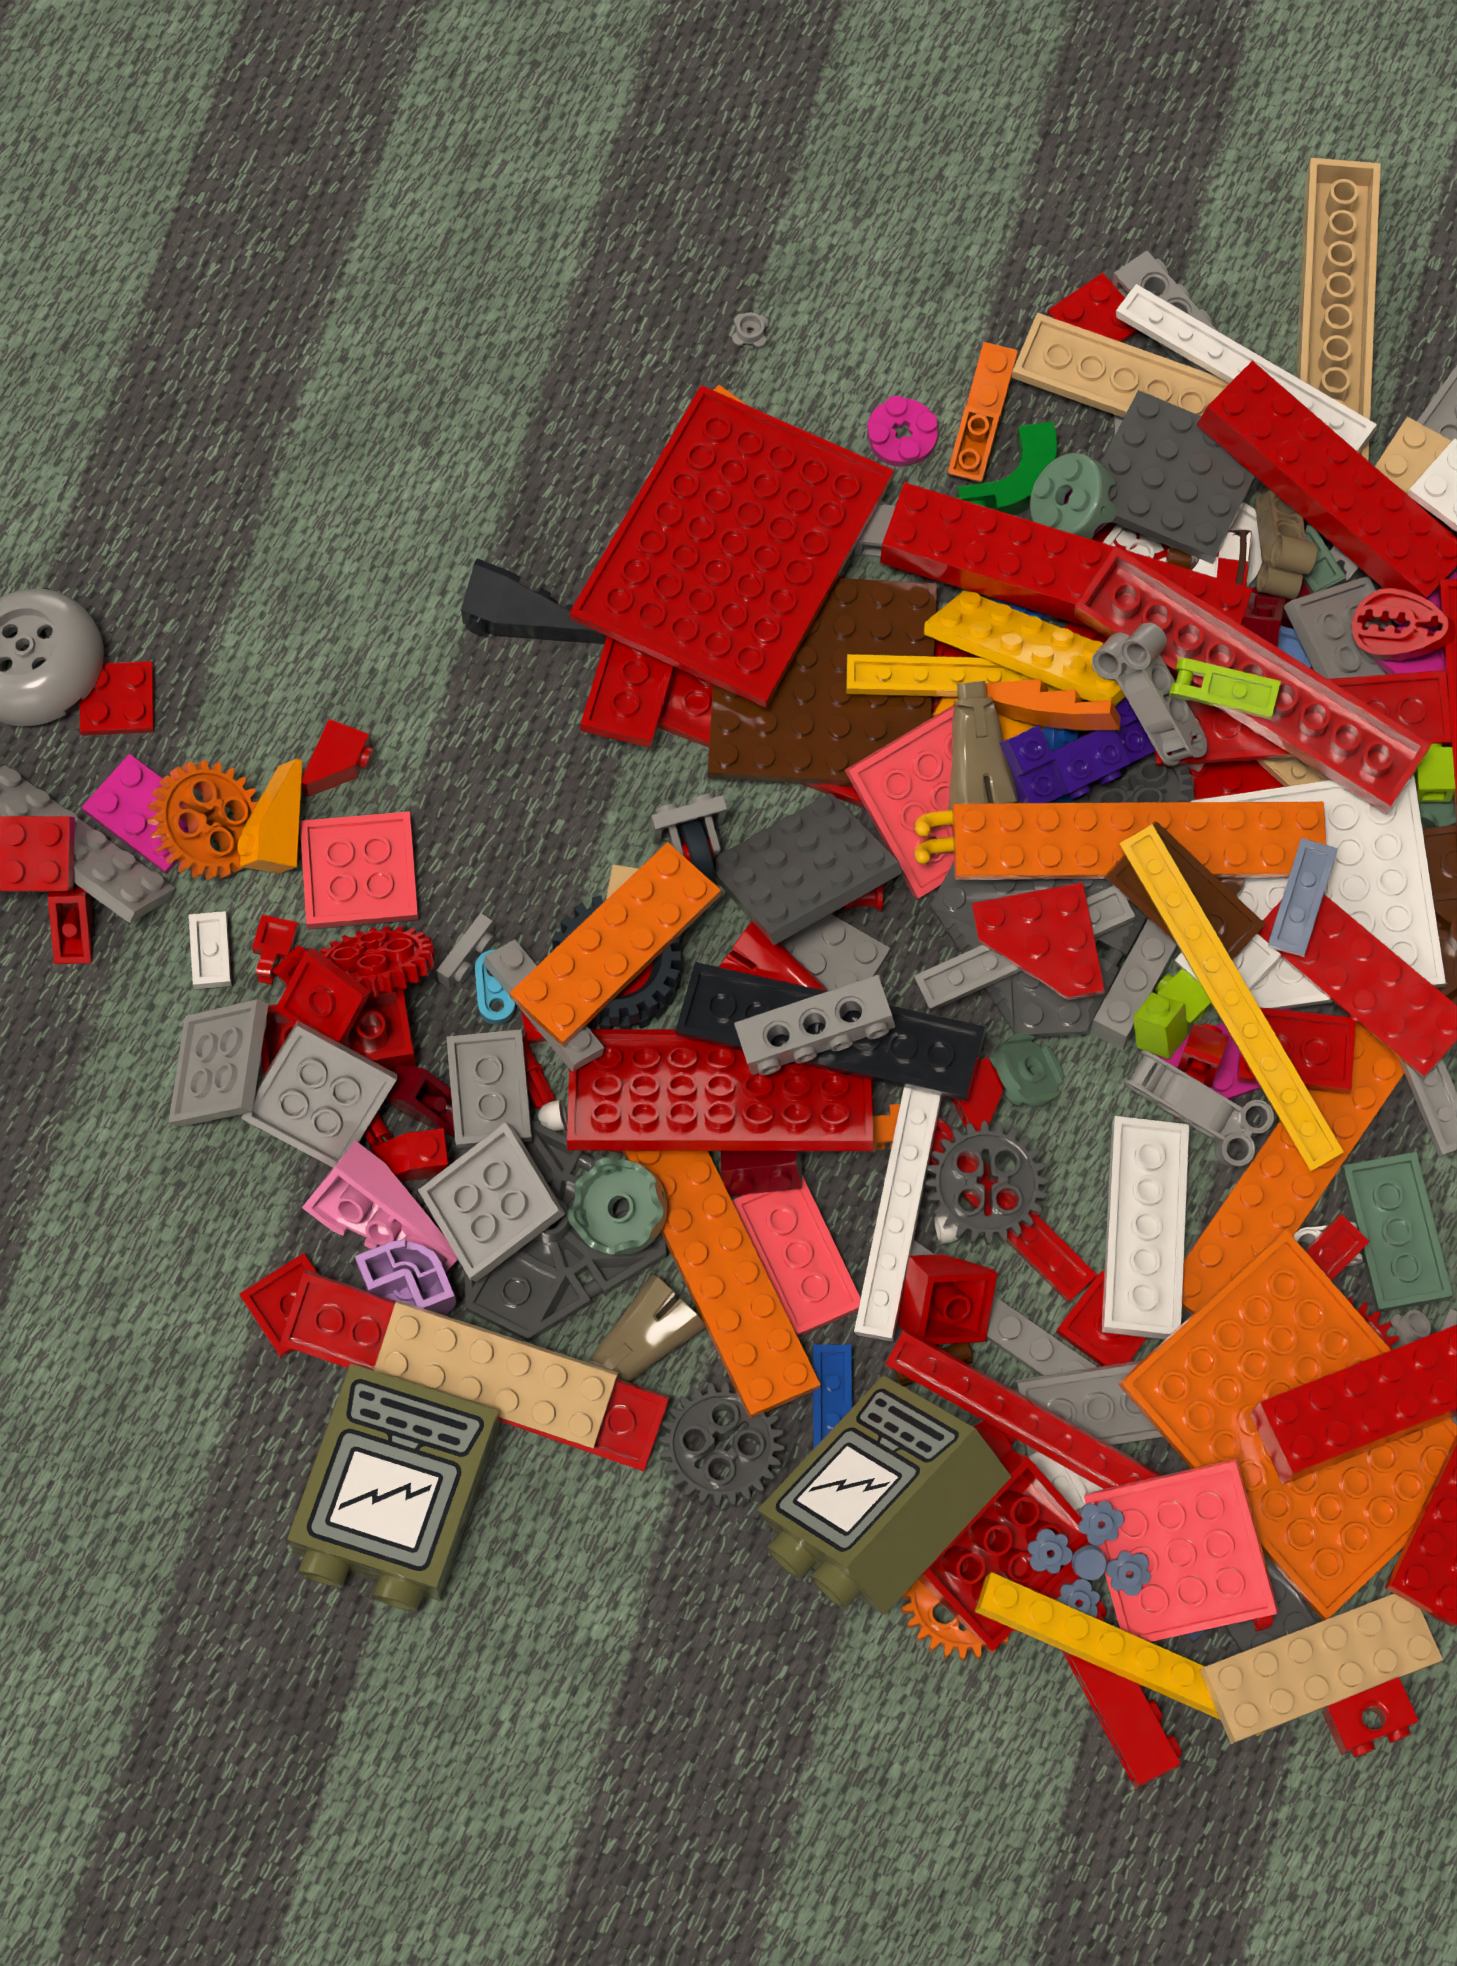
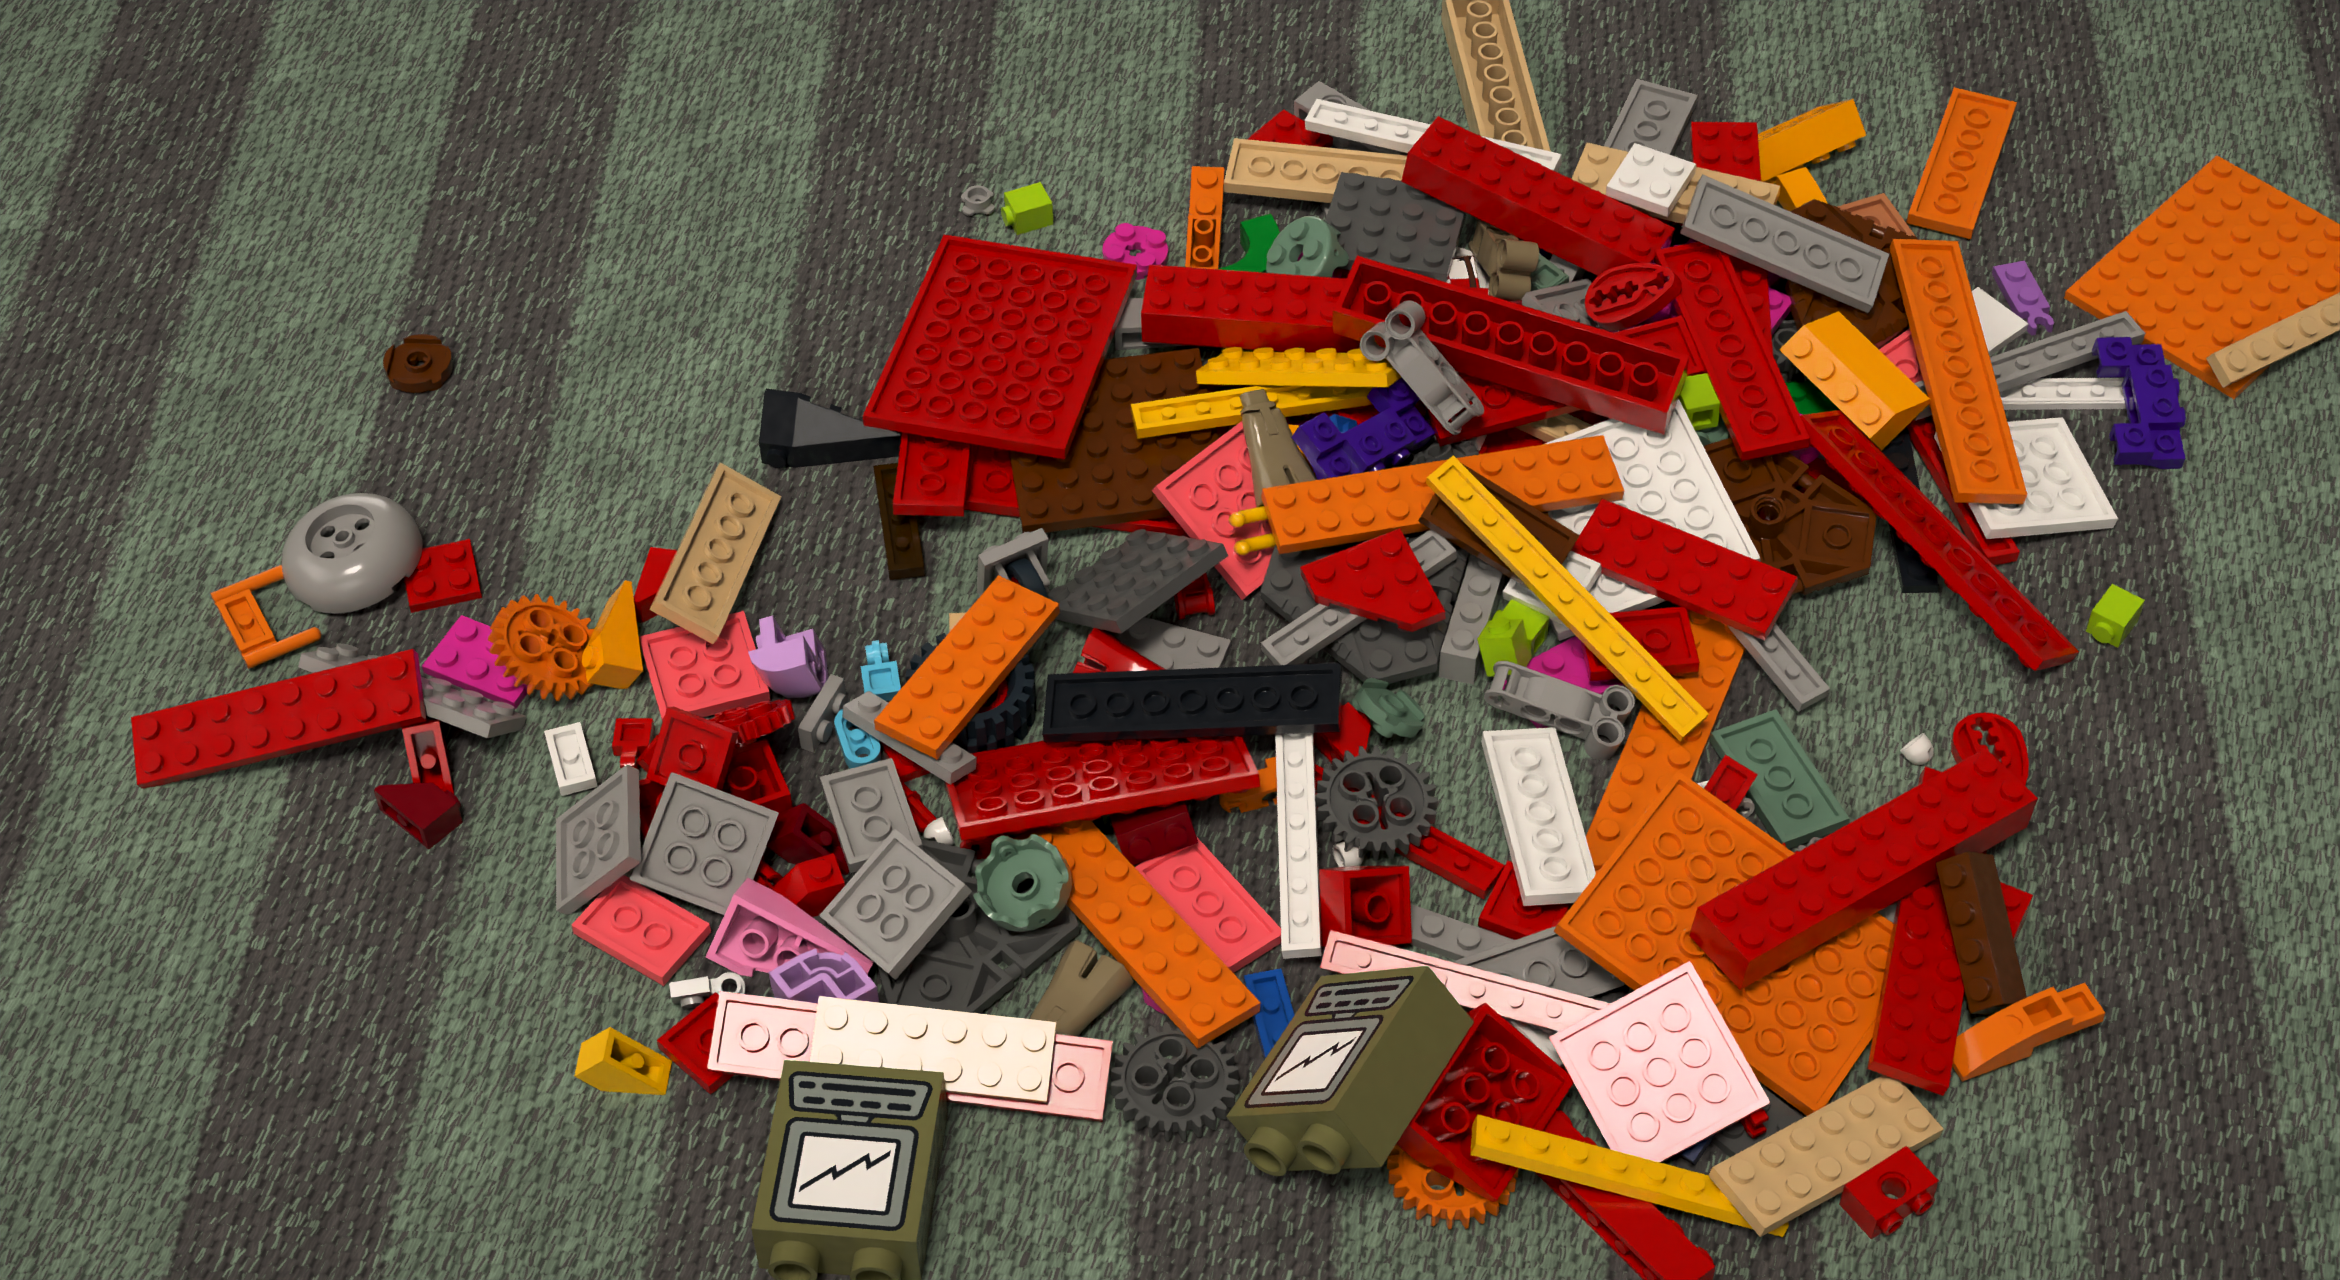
camera: 10 degrees left, 20 degrees down
(56, 982) = (420, 810): none -> dark red slope
(123, 410) = (422, 378): none -> reddish brown plate
(202, 1314) = (622, 1065): none -> yellow slope
(246, 1166) = (641, 929): none -> coral plate
(282, 1247) = (692, 992): none -> plate
(393, 741) = (715, 553): none -> tan plate
(444, 888) = (791, 663): none -> lavender brick
(532, 921) = (880, 675): none -> medium azure plate
(584, 749) = (899, 531): none -> dark brown plate
(799, 354) = (1027, 208): none -> lime brick
(827, 1008) = (1177, 692): light grey brick -> none
(1064, 709) = (1339, 400): orange slope -> none
(1090, 1561) = (1571, 1093): sand blue plant -> none
(1203, 1053) = (1552, 655): red slope -> none
(1226, 688) = (1488, 343): lime plate -> none
(1302, 897) = (1607, 507): sand blue plate -> none

